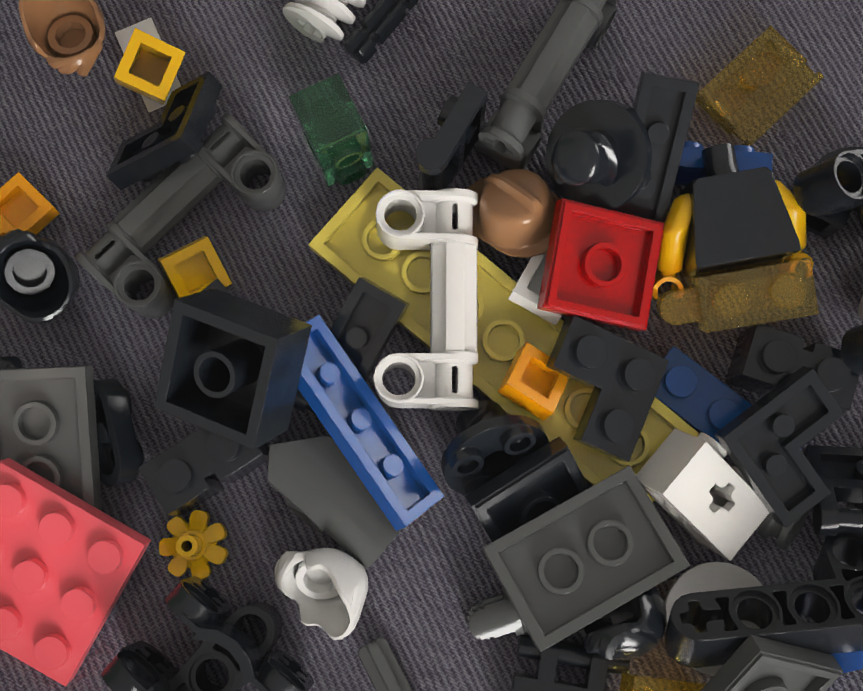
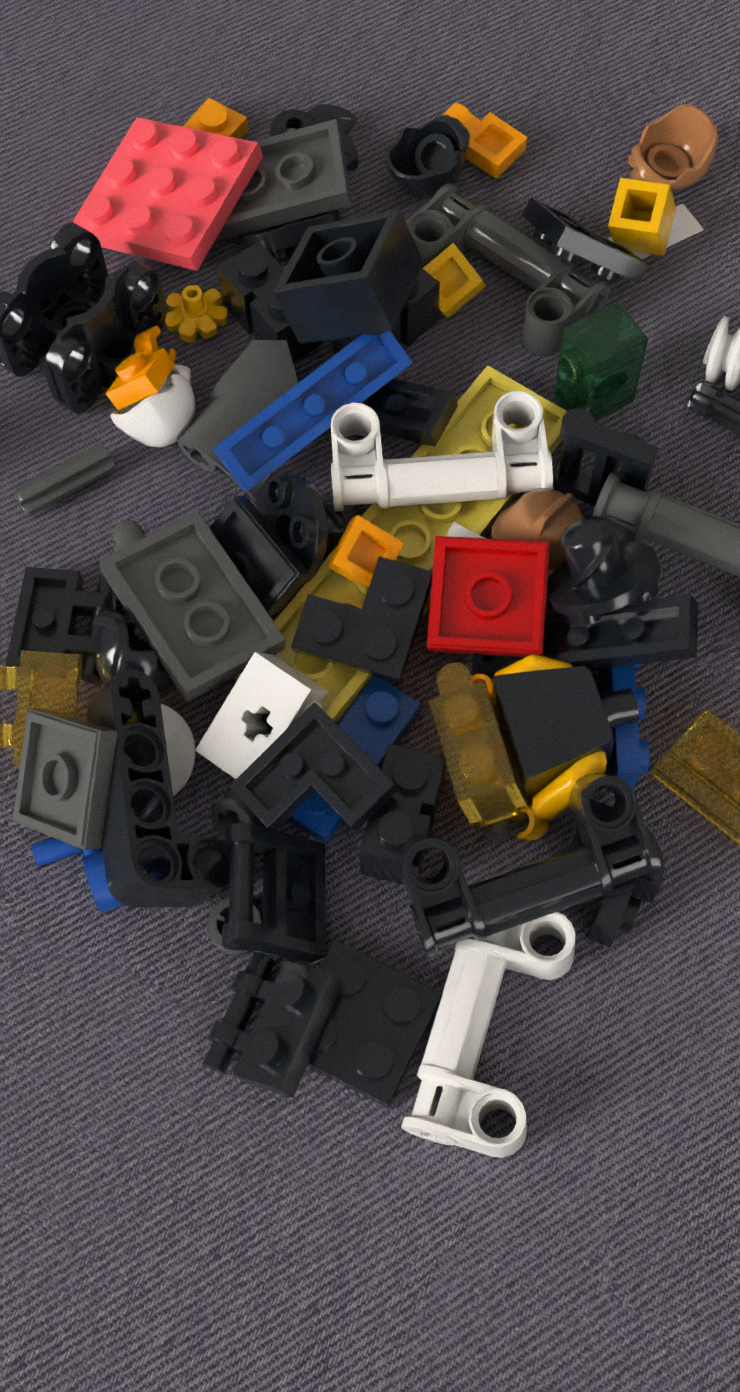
camera: 85 degrees right, 15 degrees down
(298, 601) = (143, 371): none -> light orange plate

